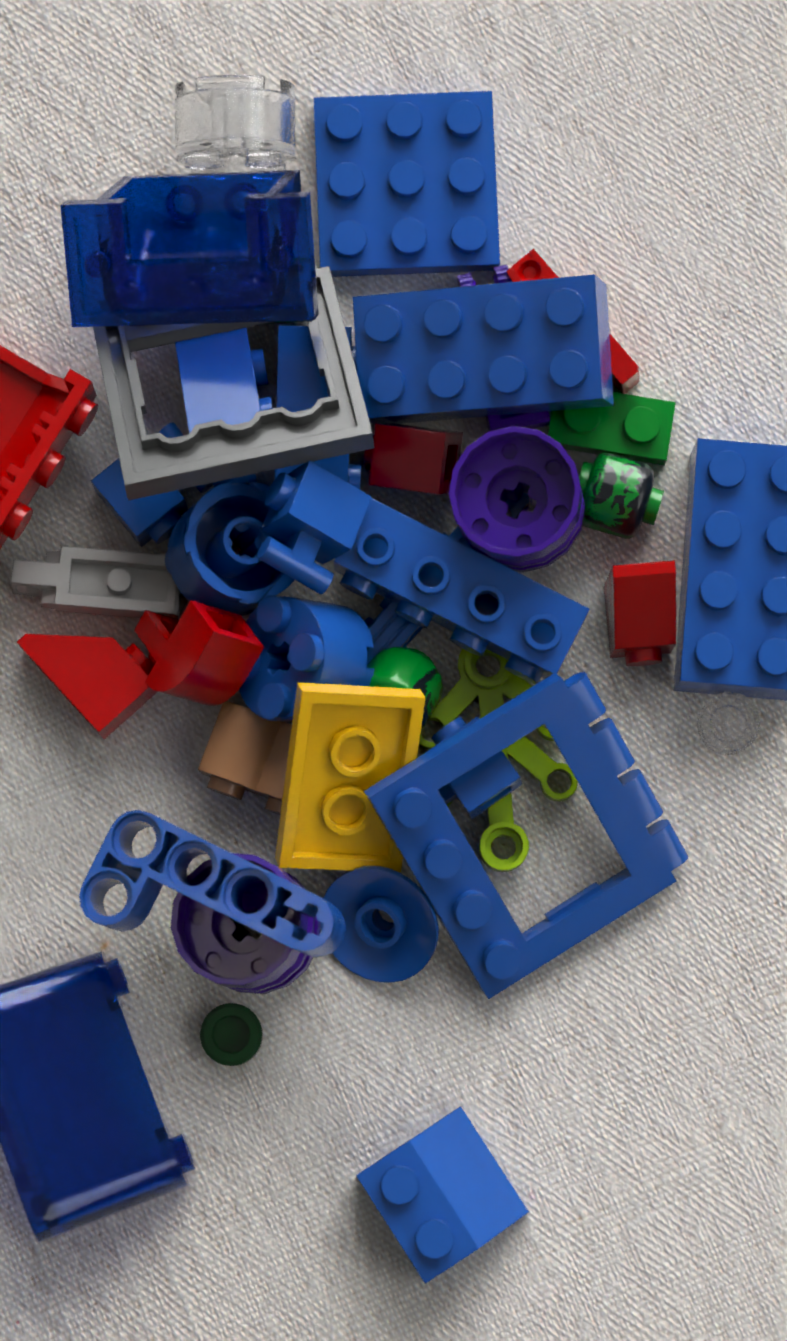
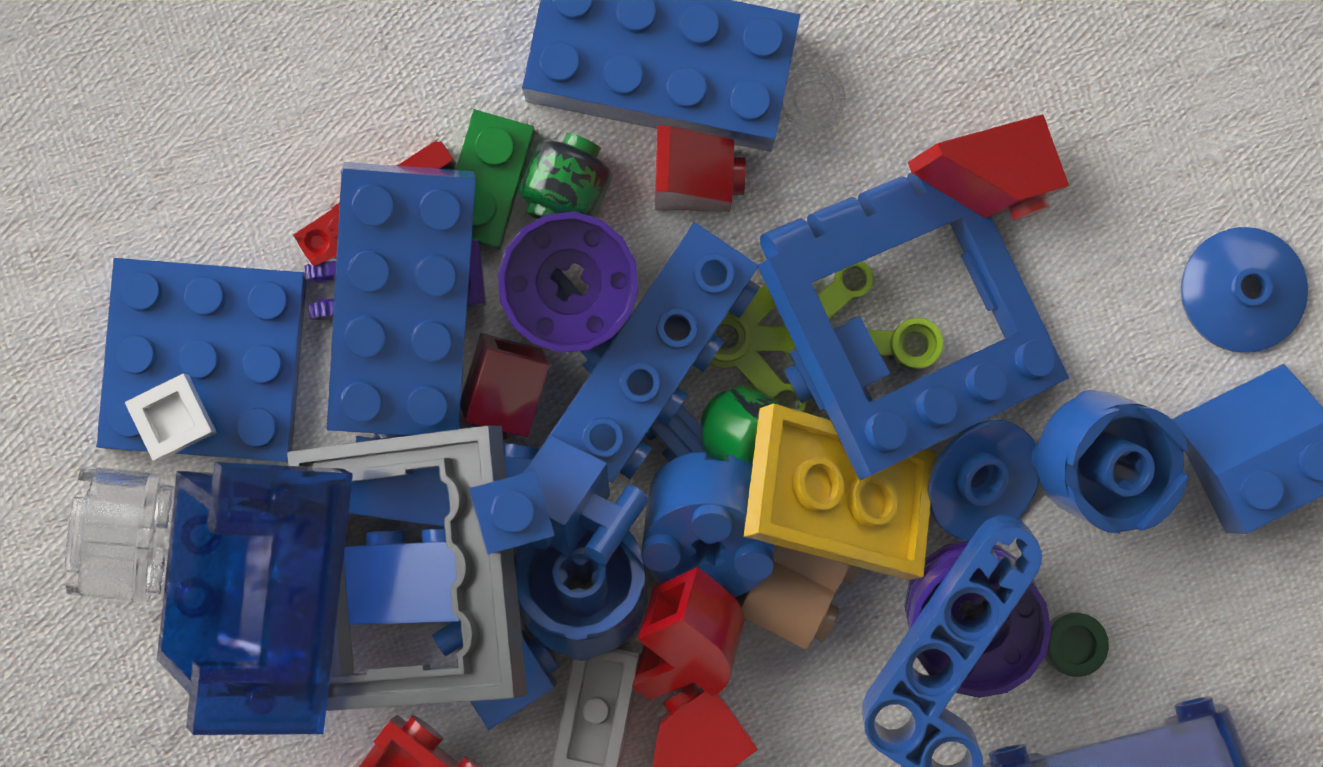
camera: 85 degrees left, 5 degrees up
(294, 461) = (511, 512): none -> blue plate
(348, 157) = (170, 417): none -> white plate
(431, 1011) = (1112, 462): none -> blue brick
(564, 1162) = (1214, 293): none -> blue dish
(681, 900) = (996, 169): none -> red slope

